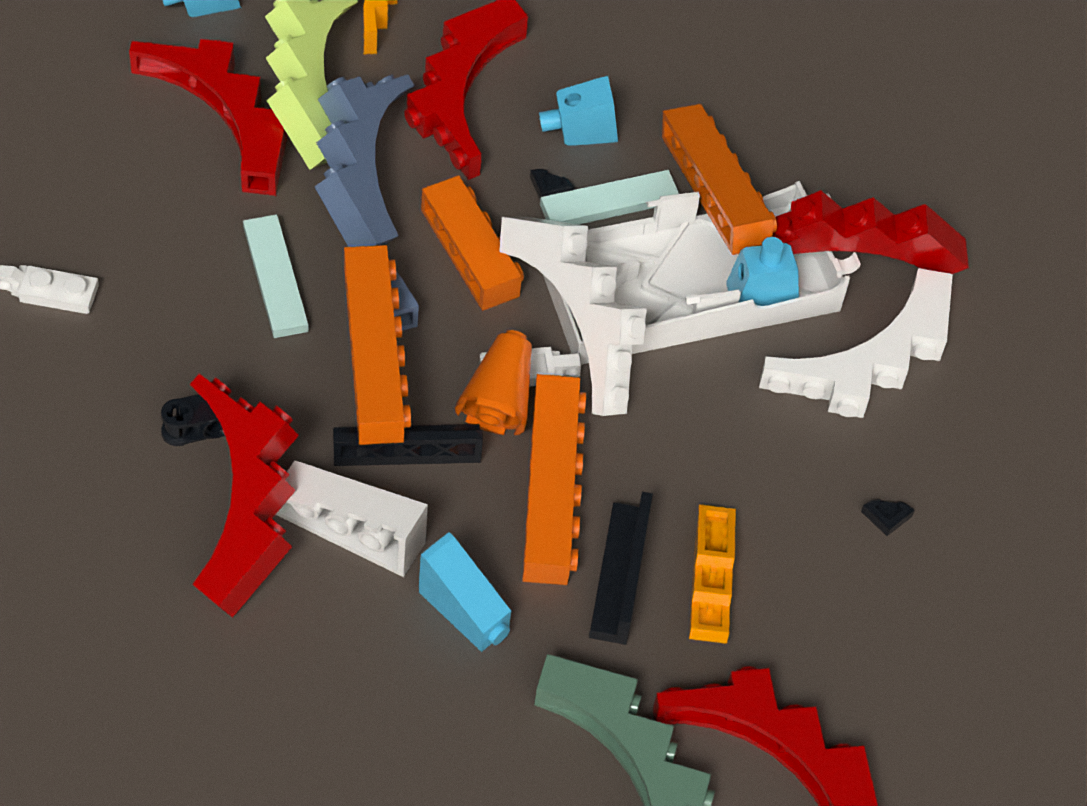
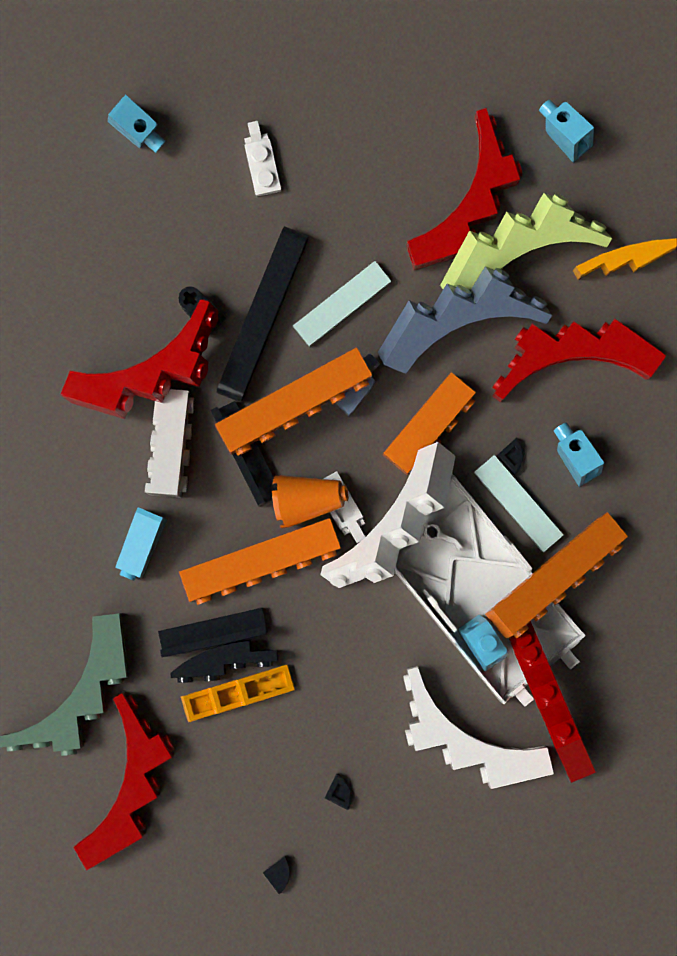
camera: 70 degrees right, 30 degrees up
(241, 354) = (262, 314): none -> black beam
(662, 572) = (212, 662): none -> black slope
(970, 621) = (278, 874): none -> black tile

